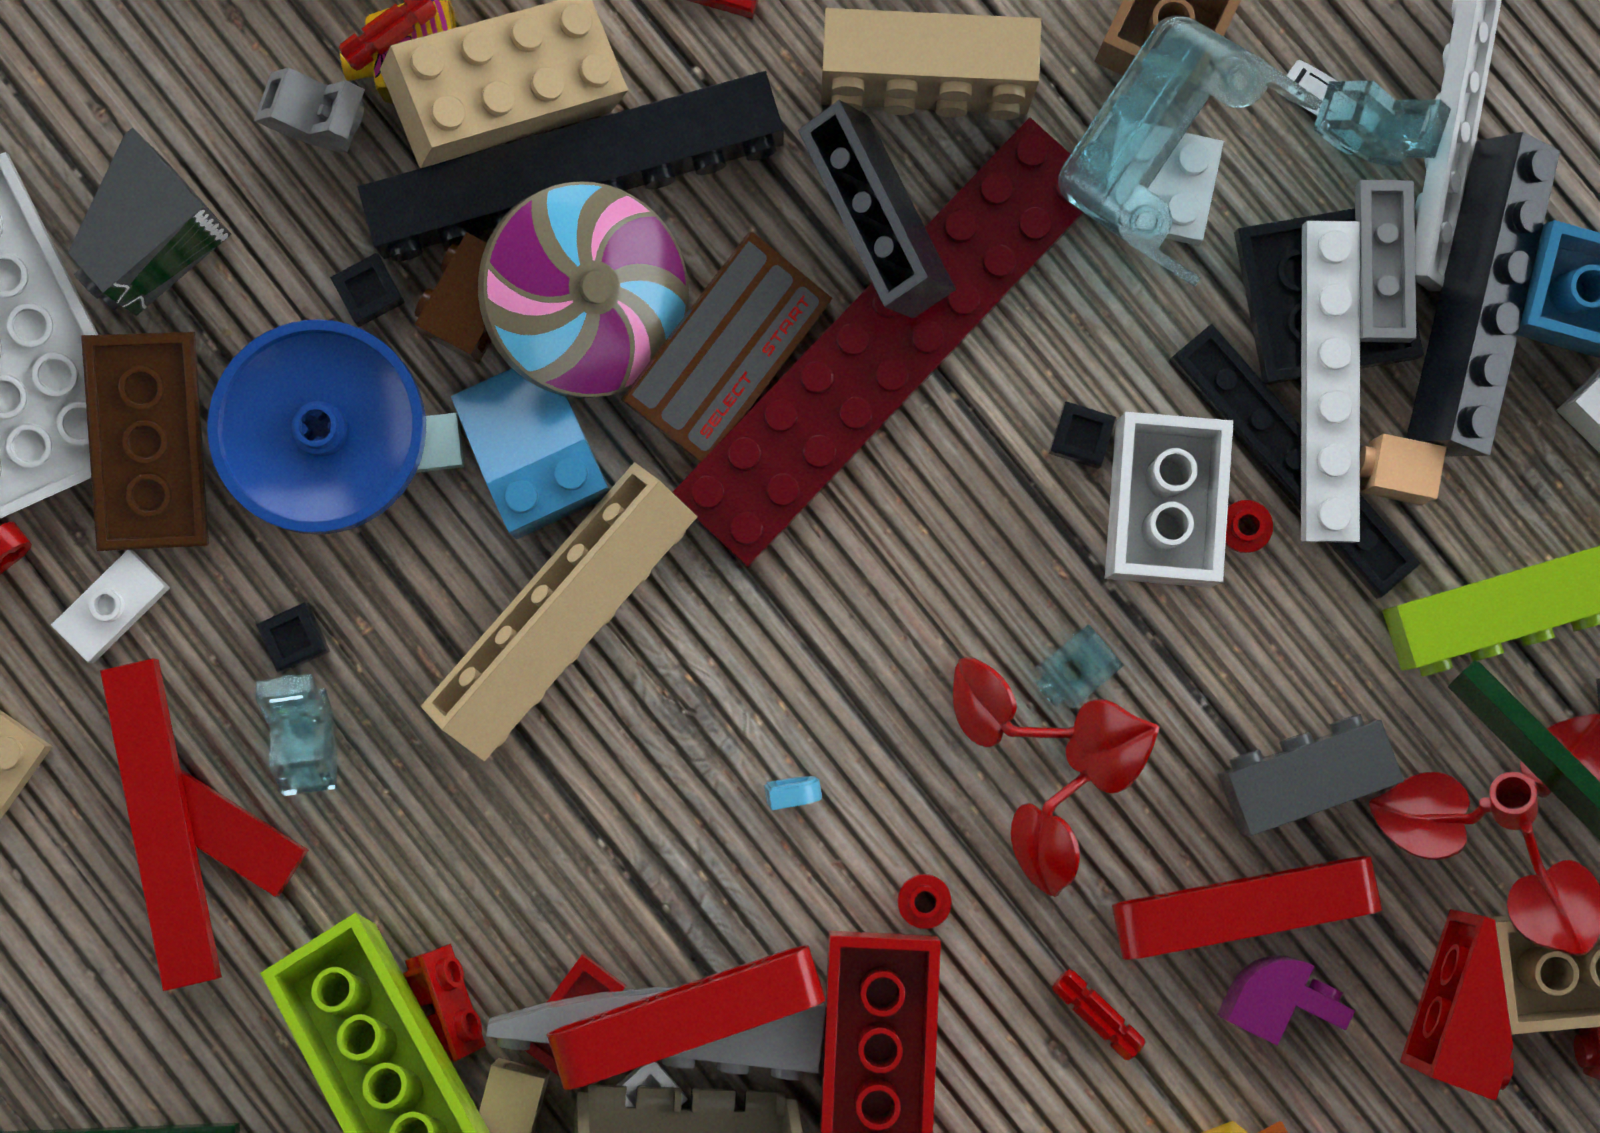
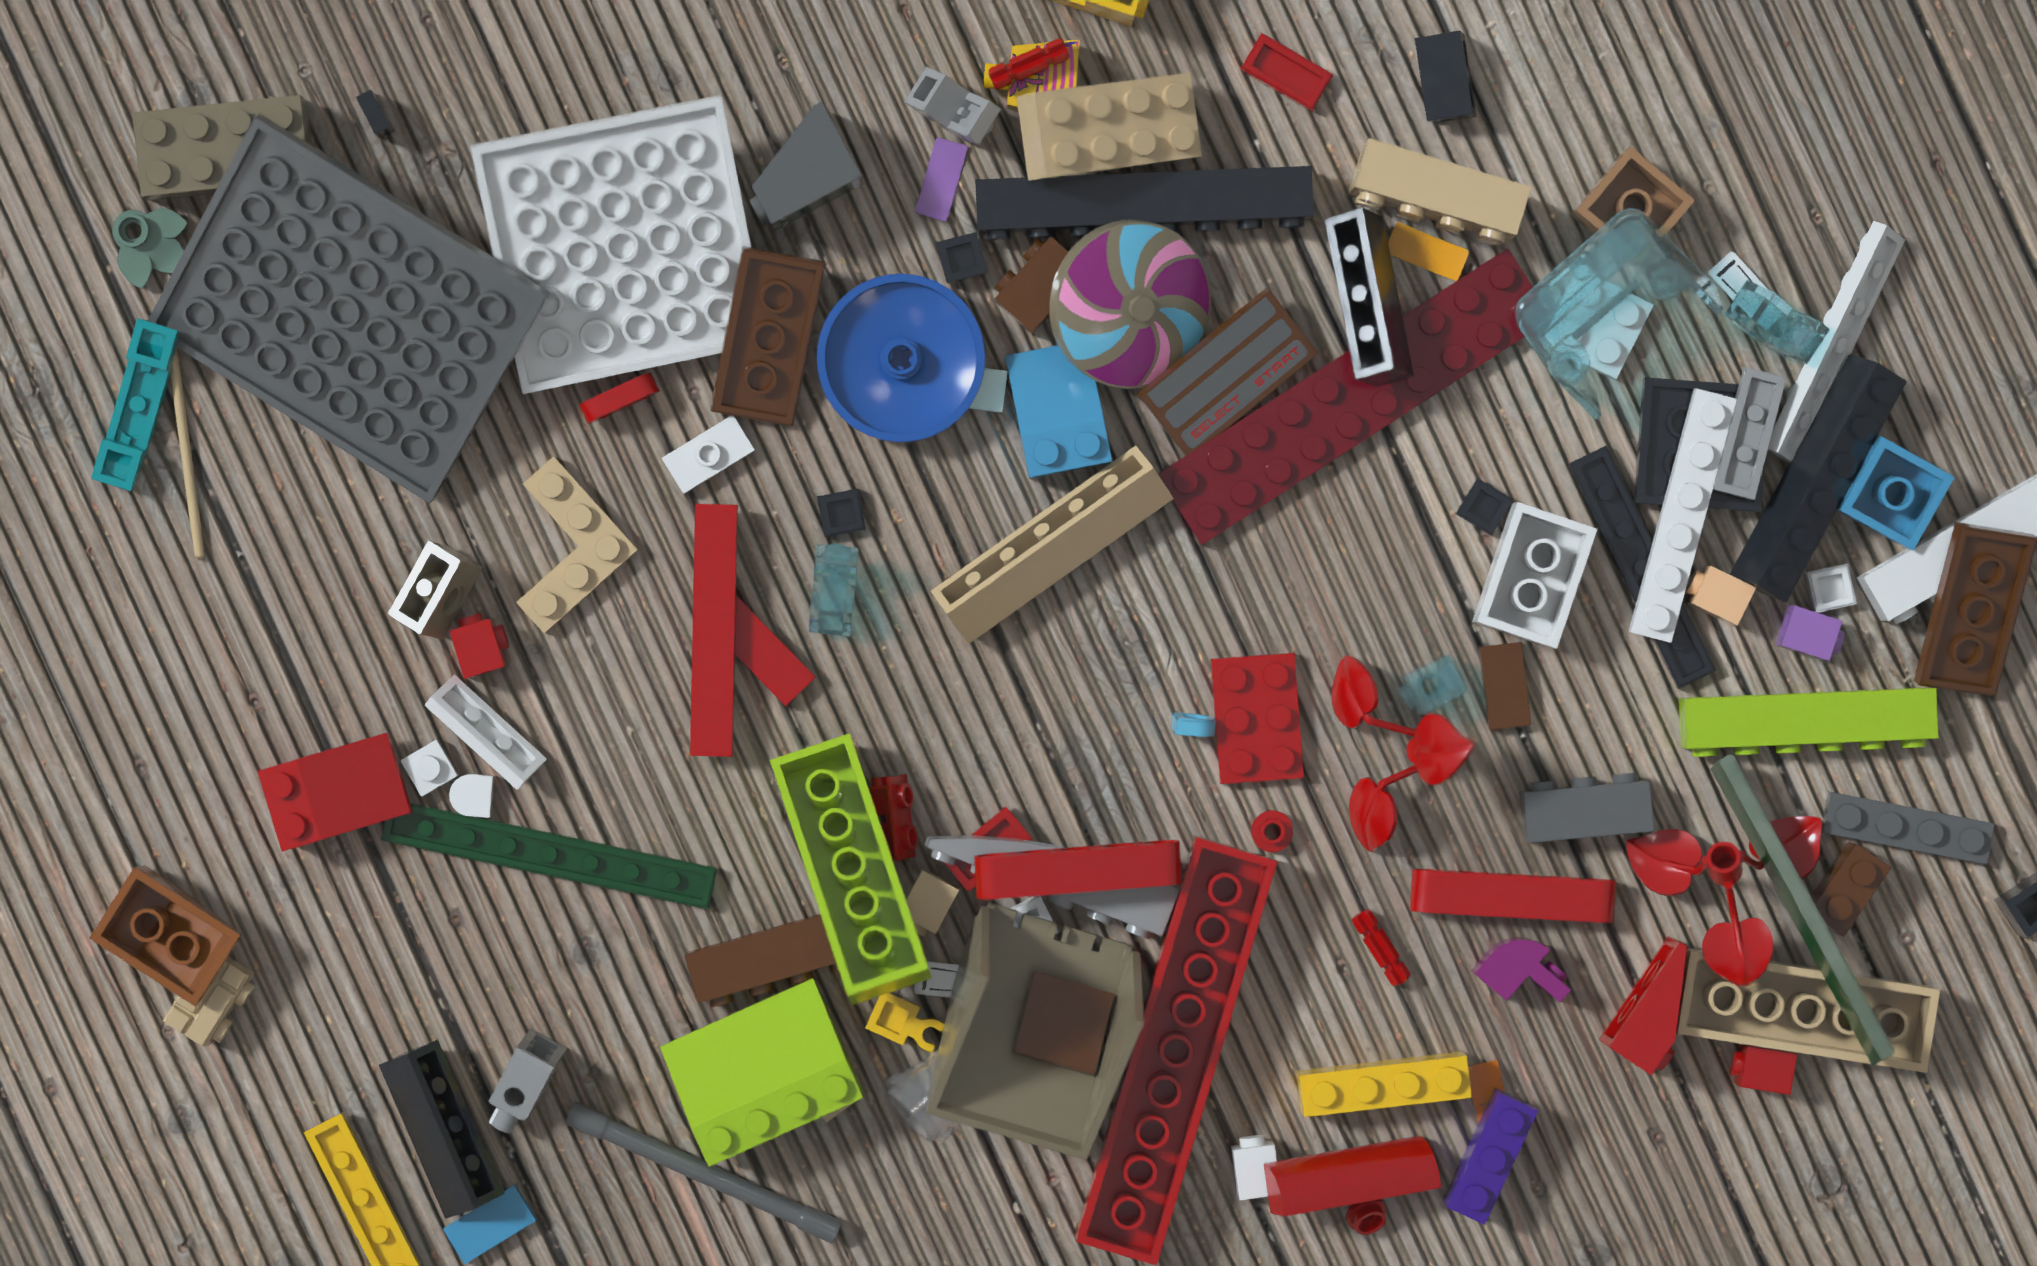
camera: 15 degrees right, 5 degrees up
(324, 204) = (941, 179): none -> medium lavender sticker
(870, 764) = (1257, 718): none -> red plate
(934, 148) = (1427, 251): none -> light orange sticker
(1166, 647) = (1504, 685): none -> reddish brown tile
(1263, 521) = (1578, 615): red plate -> none
(1524, 488) = (1810, 633): none -> medium lavender brick
(1531, 429) = (1830, 588): none -> white tile

